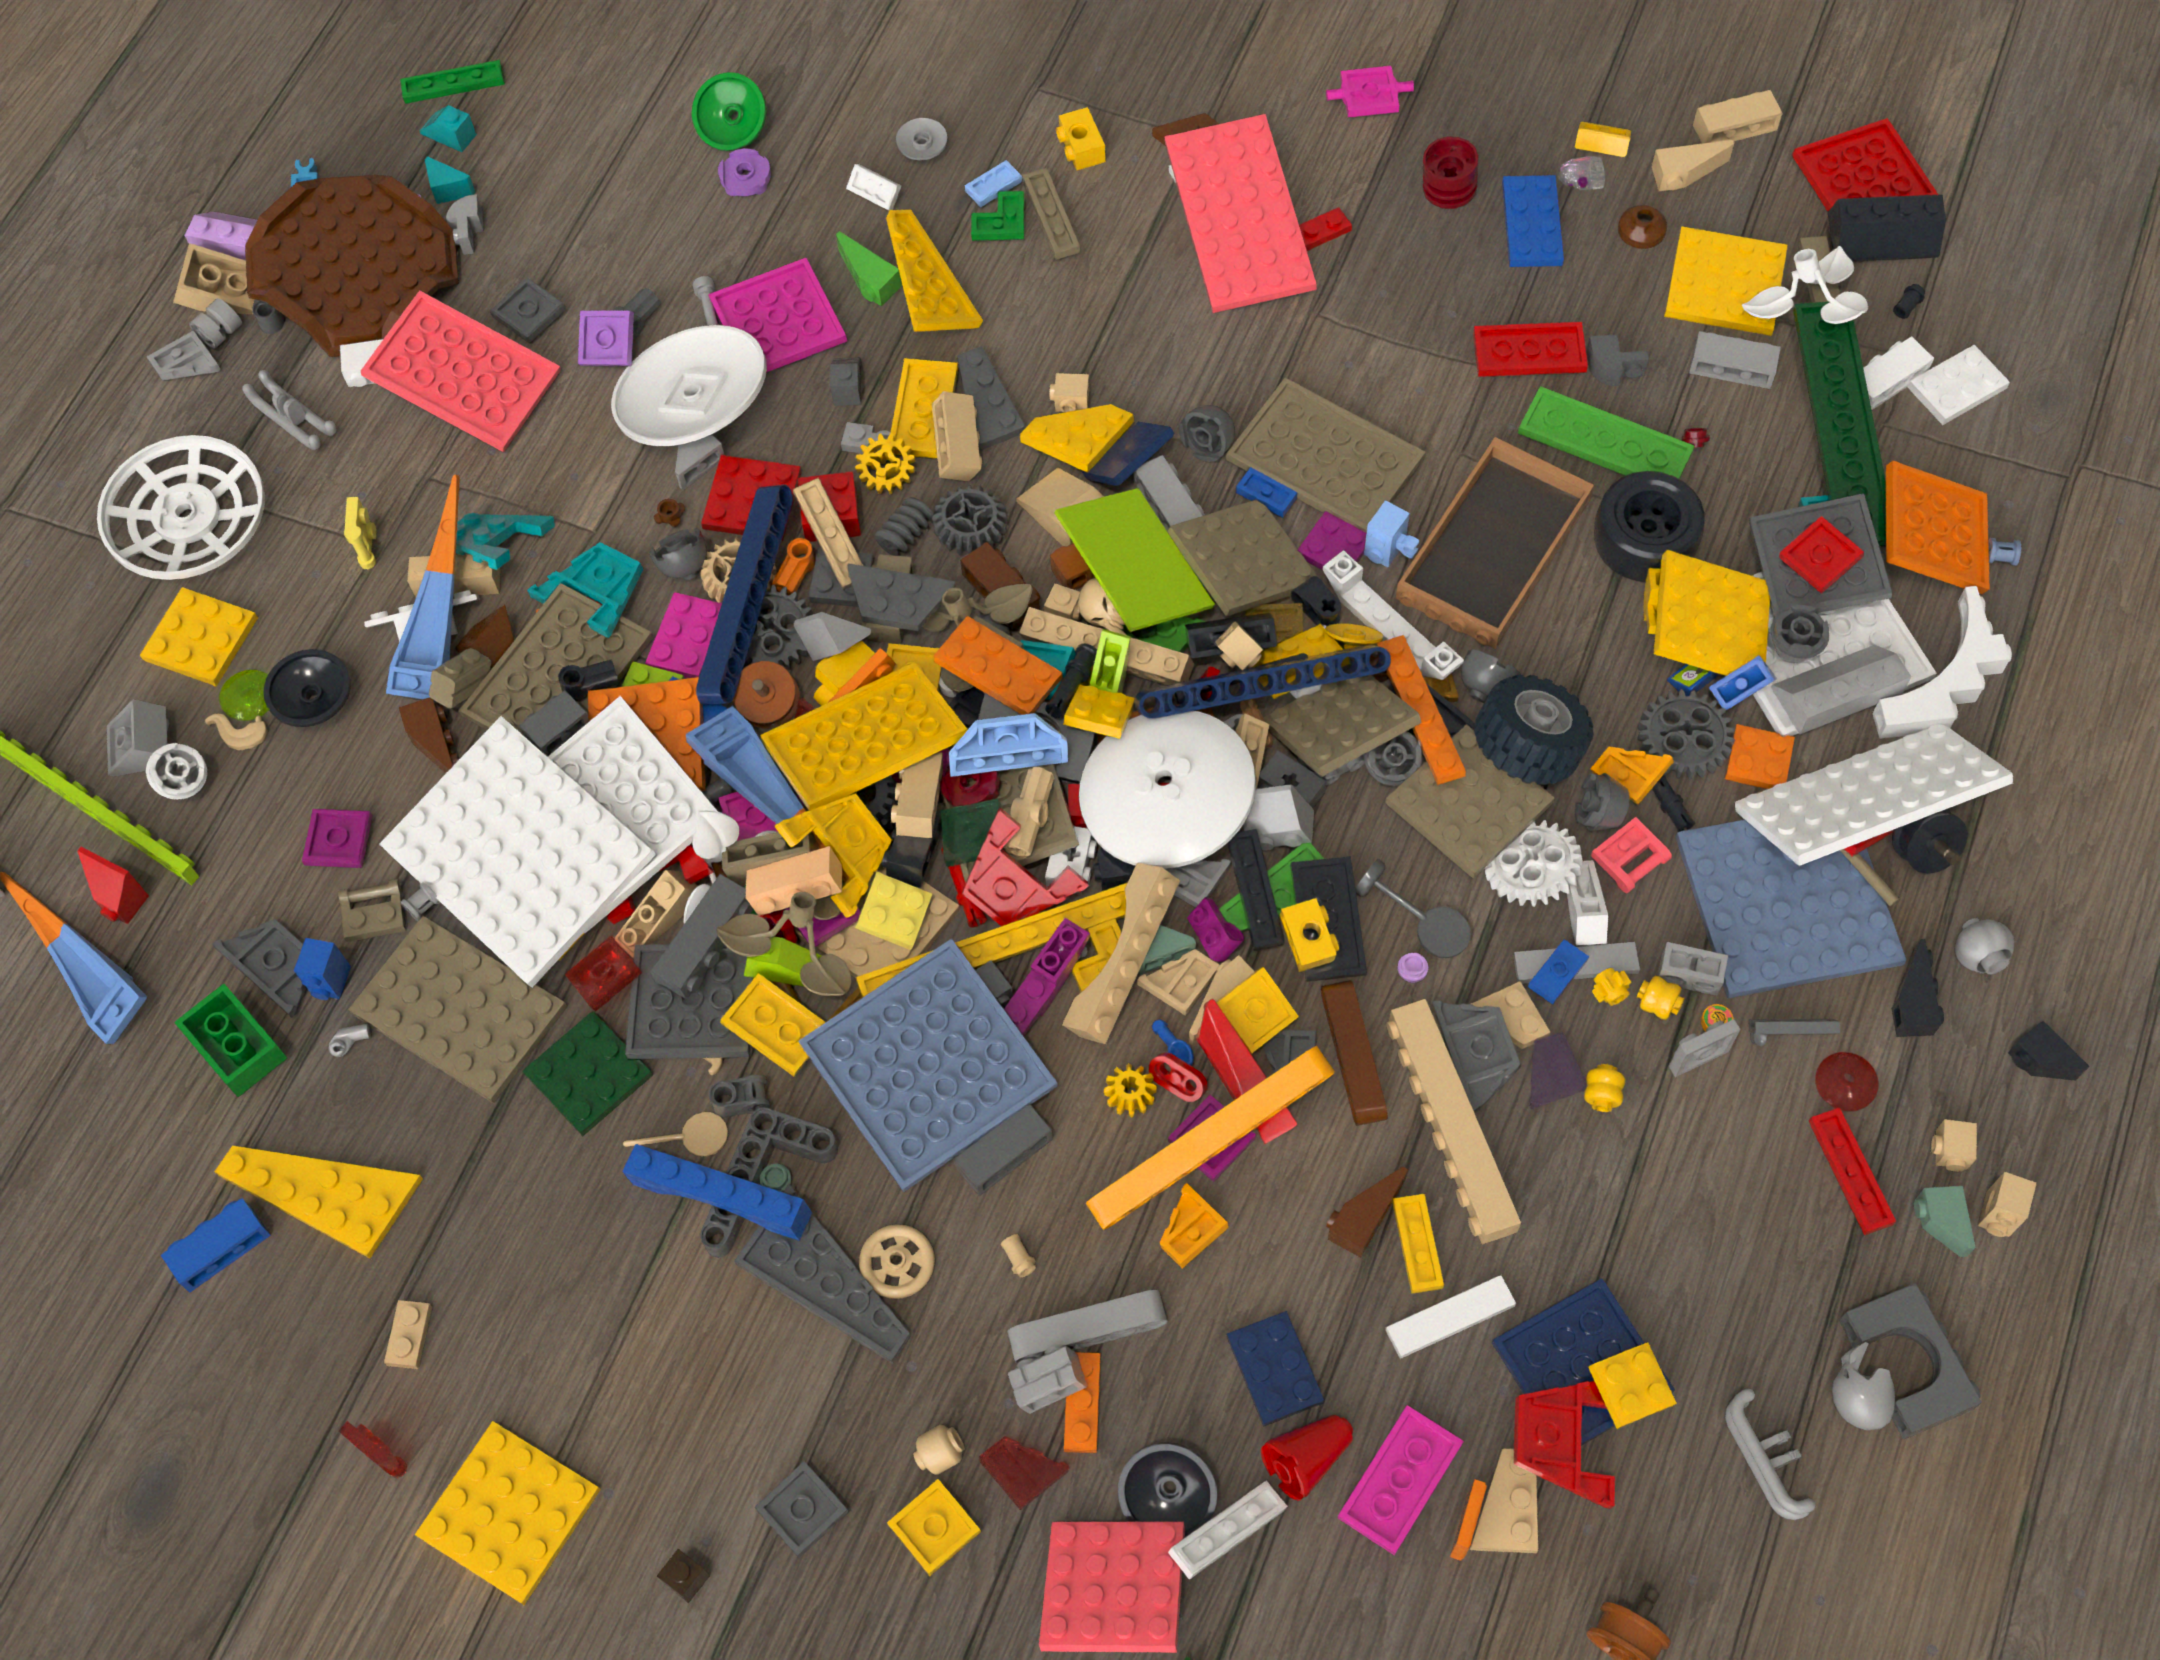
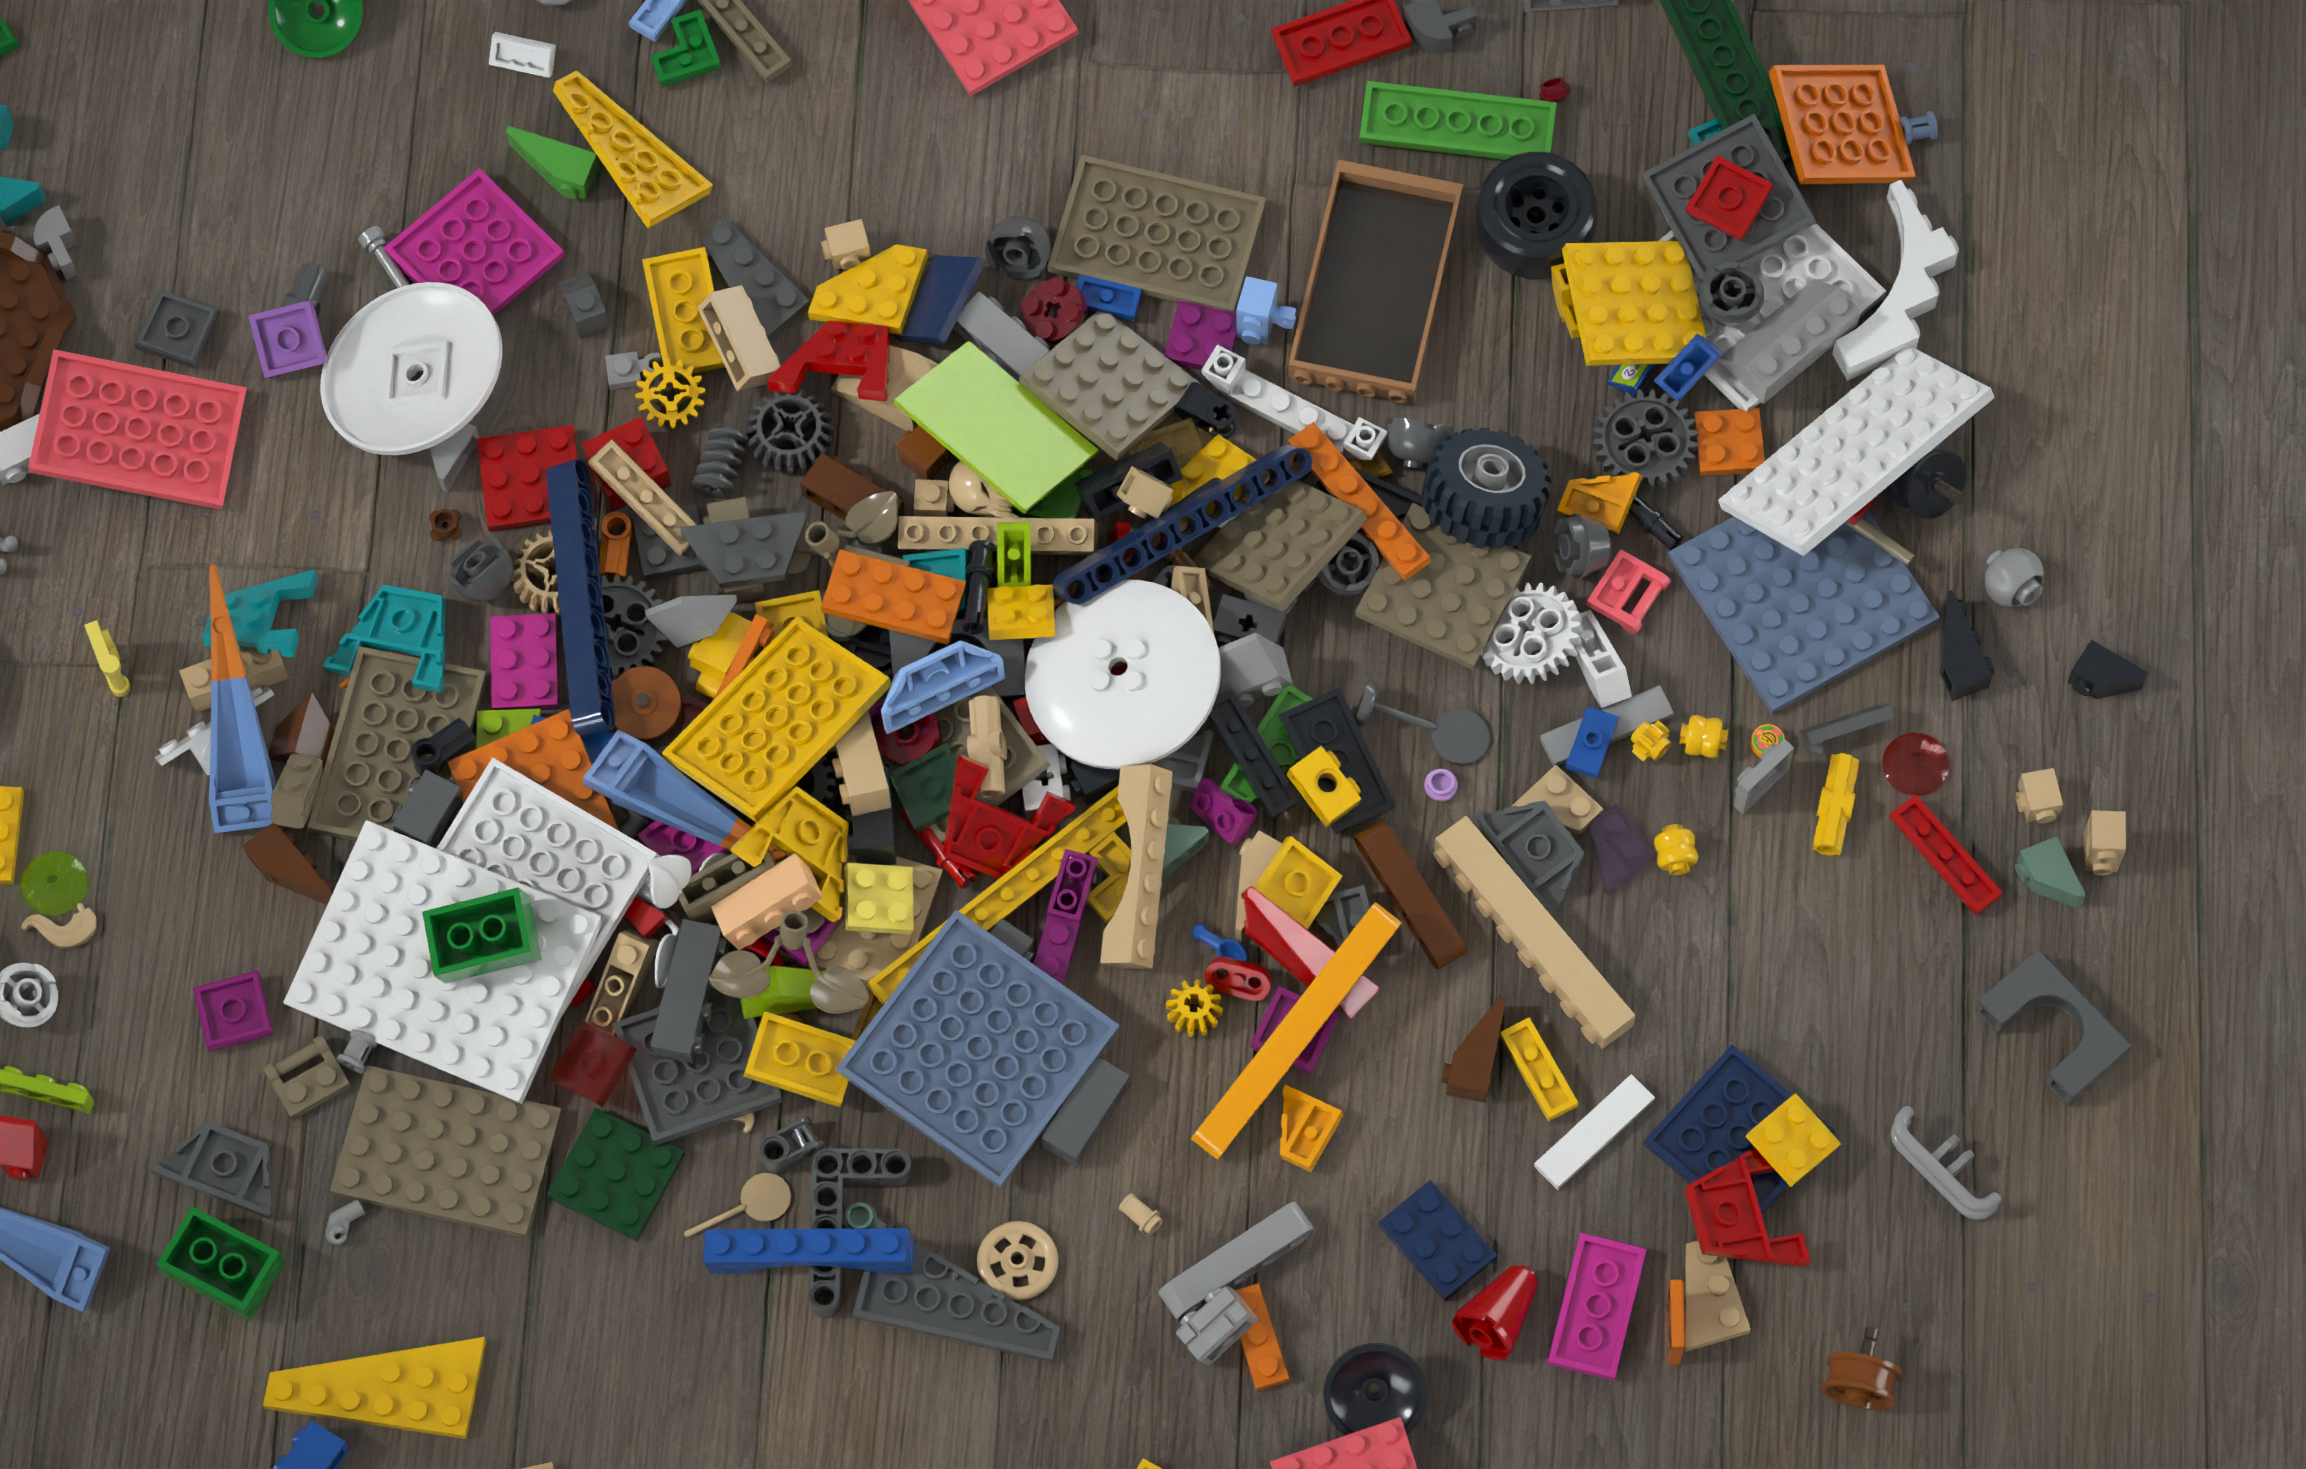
camera: 20 degrees left, 5 degrees up
(301, 677) = (120, 838): black dish -> none
(322, 969) = (288, 1157): blue brick -> none
(545, 833) = (481, 935): none -> green brick
(748, 184) = (365, 96): medium lavender plate -> none
(938, 1449) = (1132, 1430): tan head -> none
(1021, 1470) = (1221, 1422): clear red wing -> none
(1032, 468) = (840, 350): none -> red wing
(1181, 981) = (1205, 876): tan wing -> none
(1213, 477) = (1042, 299): none -> dark red plate
(1227, 1529) = (1446, 1409): white tile -> none
(1354, 635) = (1259, 436): yellow dish -> none
(1693, 968) = (1727, 695): light grey brick -> none
(1763, 1094) = (1835, 804): none -> yellow piece
(1863, 1399) = (2017, 1080): light grey helmet -> none

